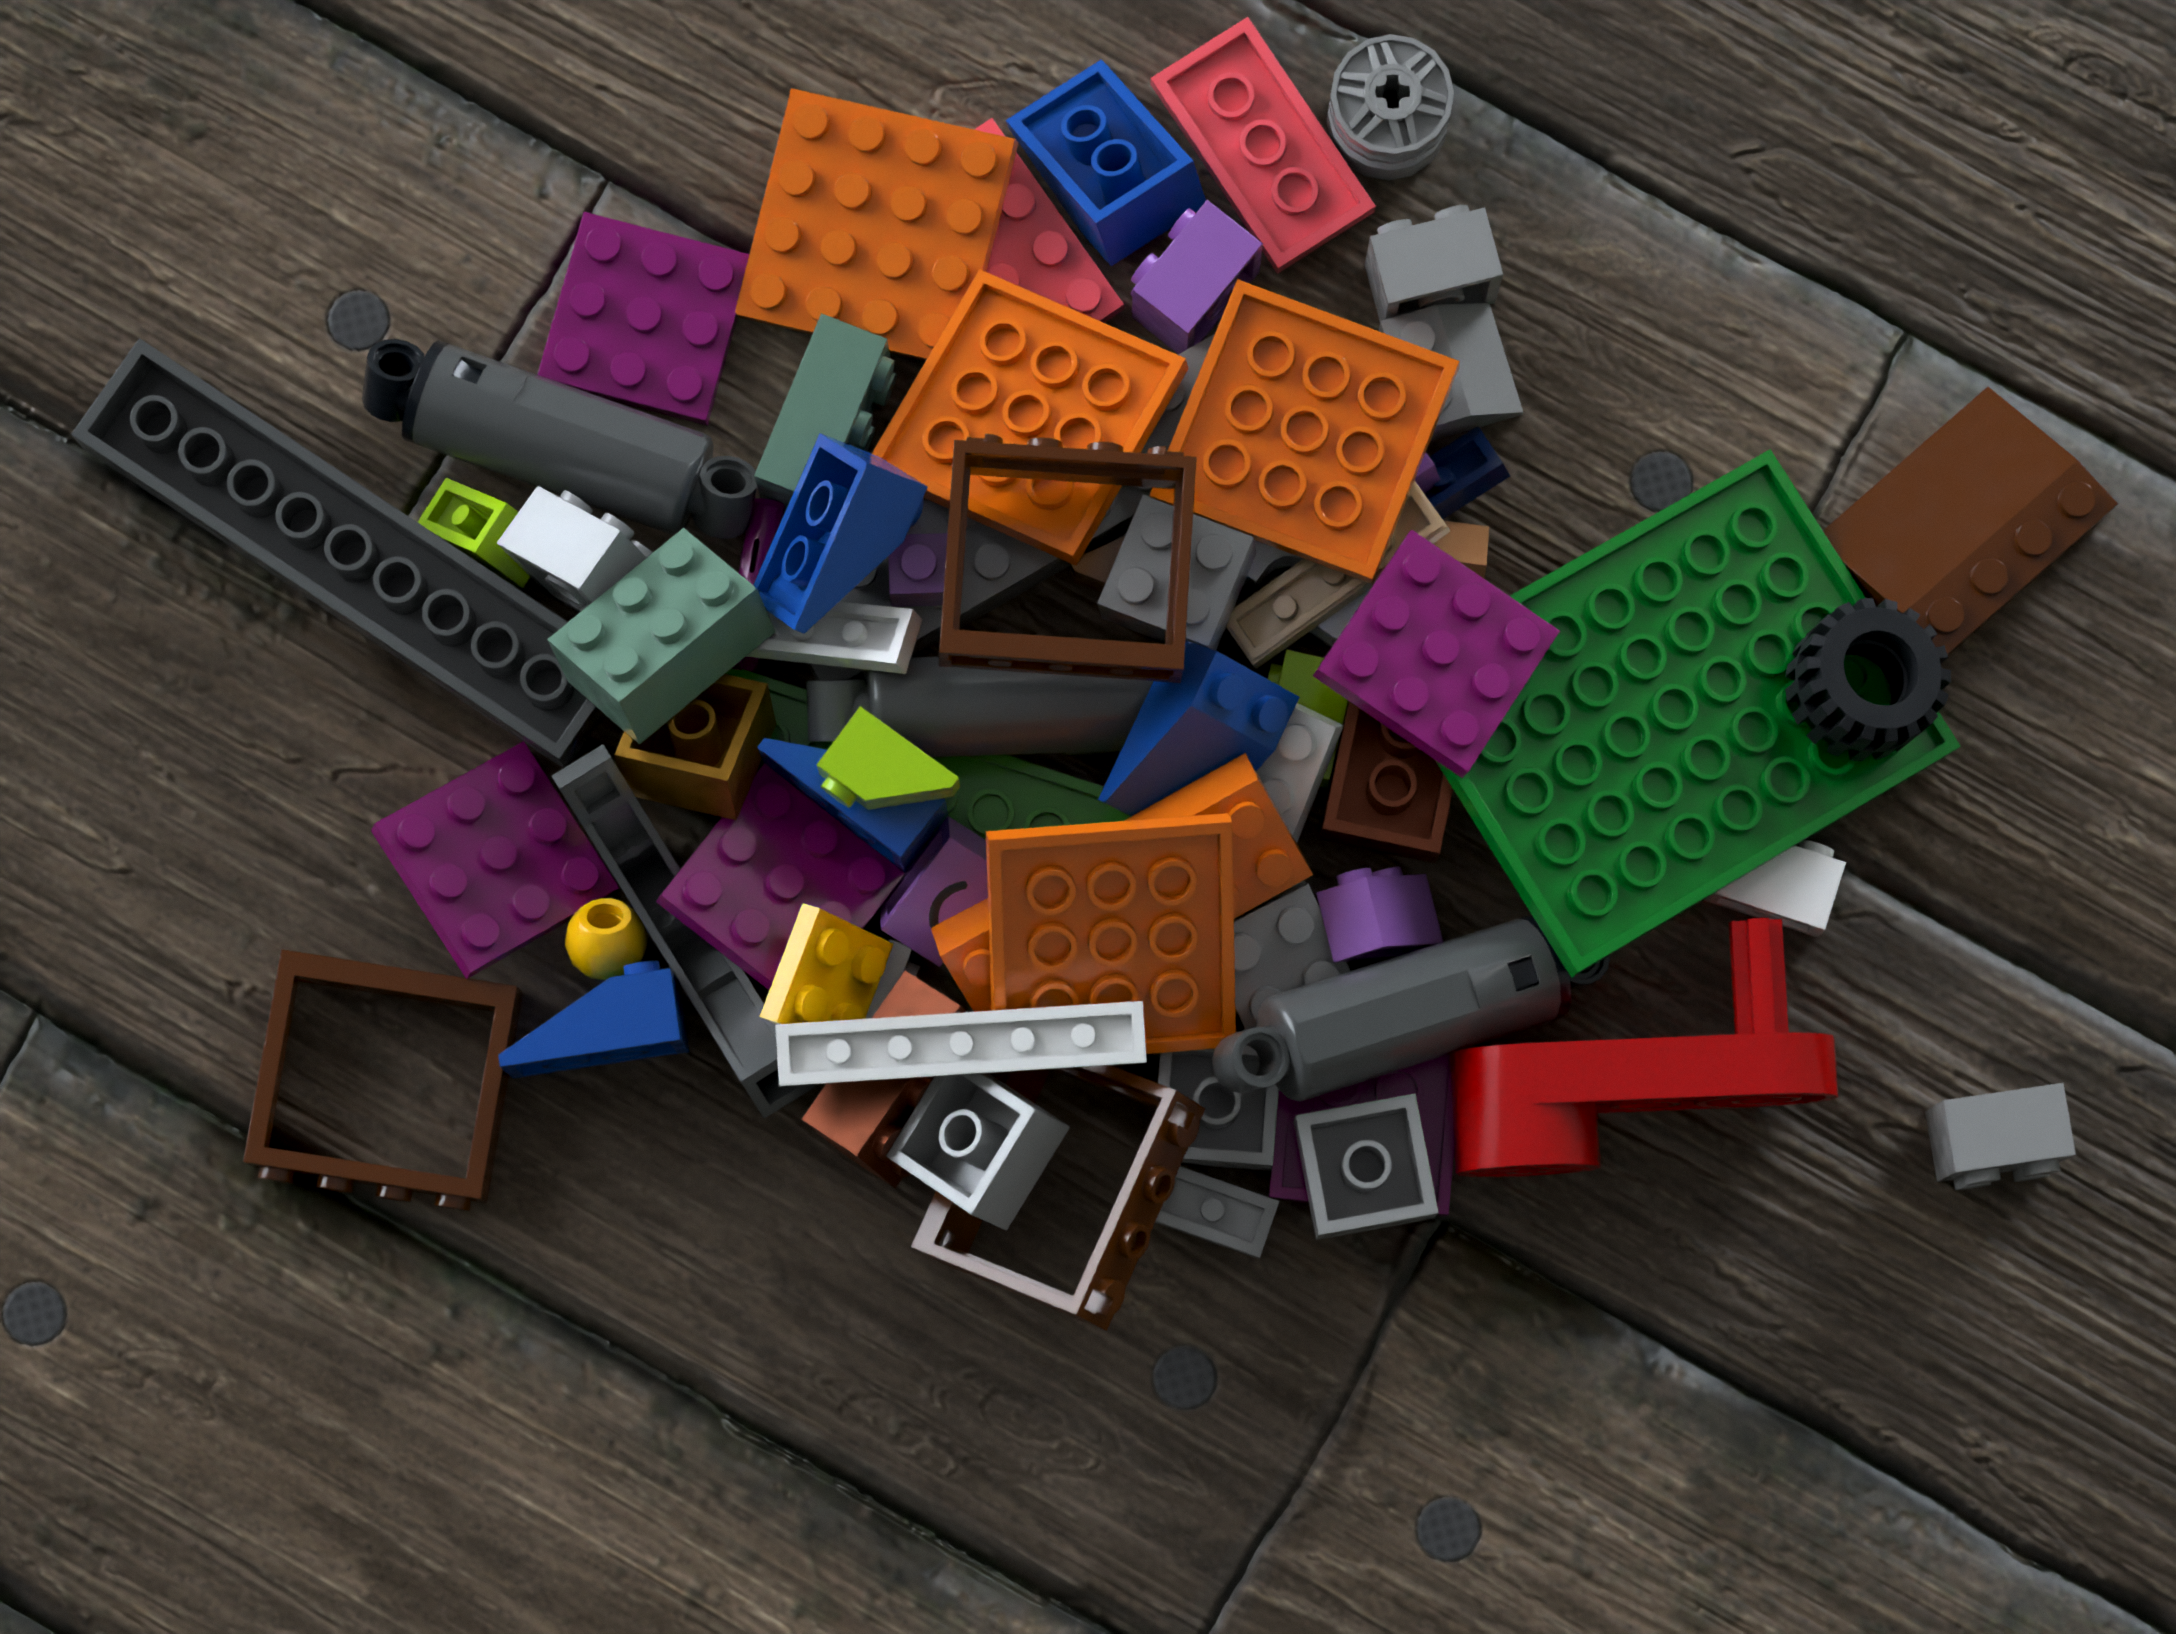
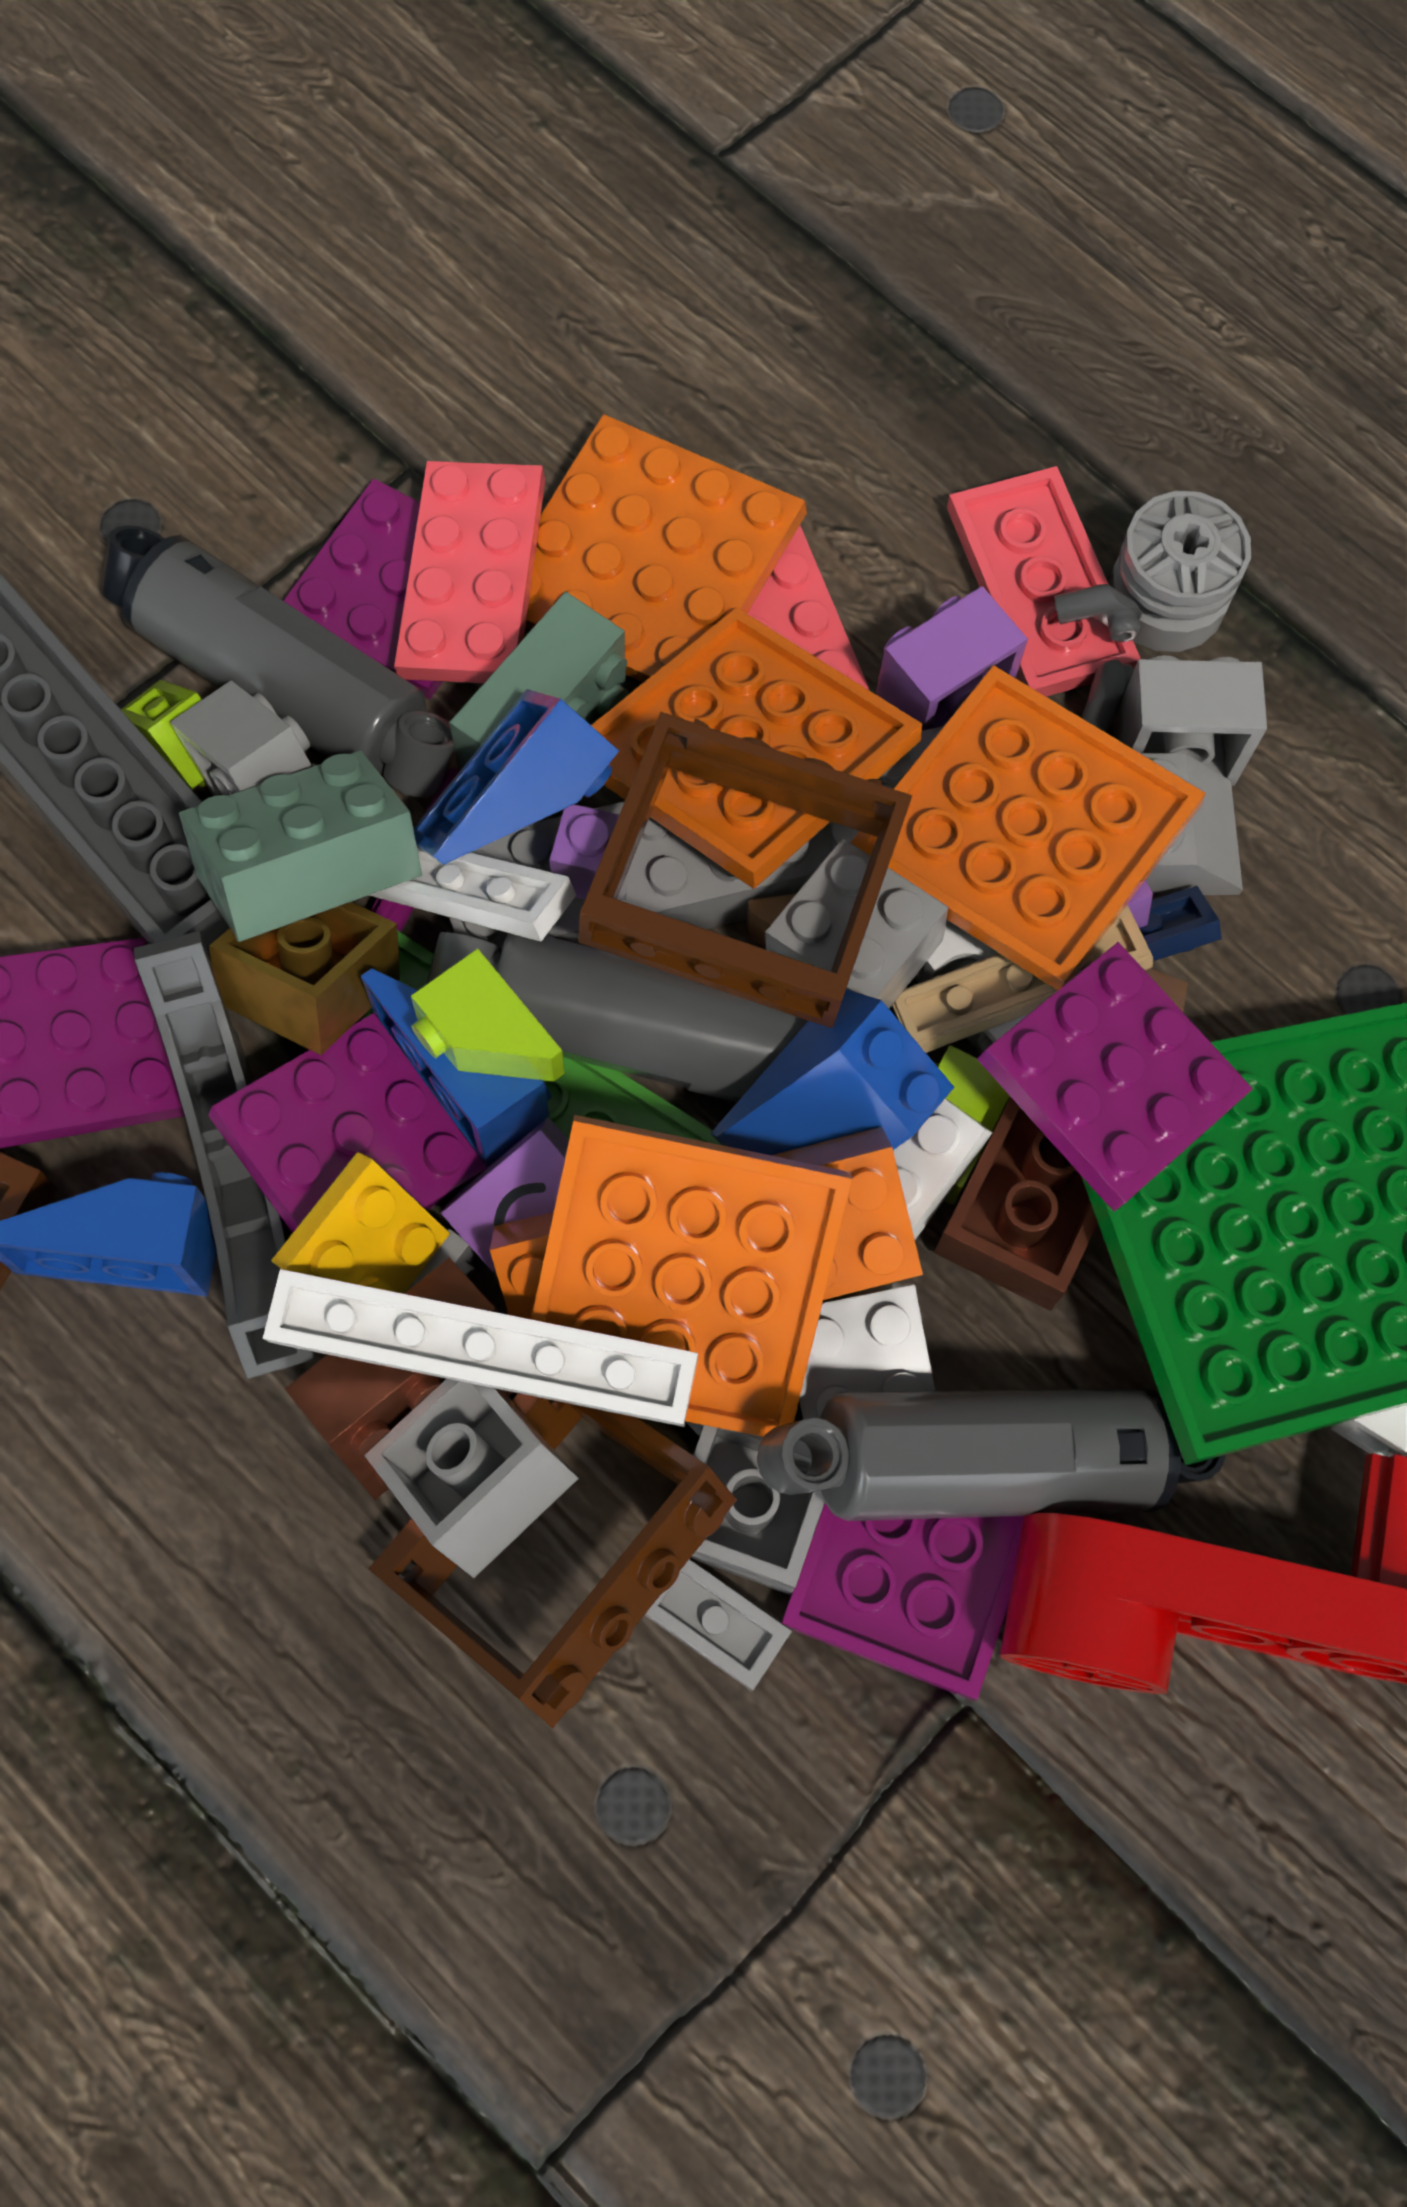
camera: 10 degrees right, 10 degrees down
(605, 938) = (151, 1142): yellow piece -> none
(714, 295) = (469, 570): none -> coral plate
(1108, 161) = (887, 557): blue slope -> none
(1328, 165) = (1105, 605): none -> dark grey arm
(1349, 258) = (1106, 692): none -> dark grey arm
(1365, 1166) = (901, 1618): light grey brick -> none
(1378, 915) = (979, 1341): medium lavender brick -> none

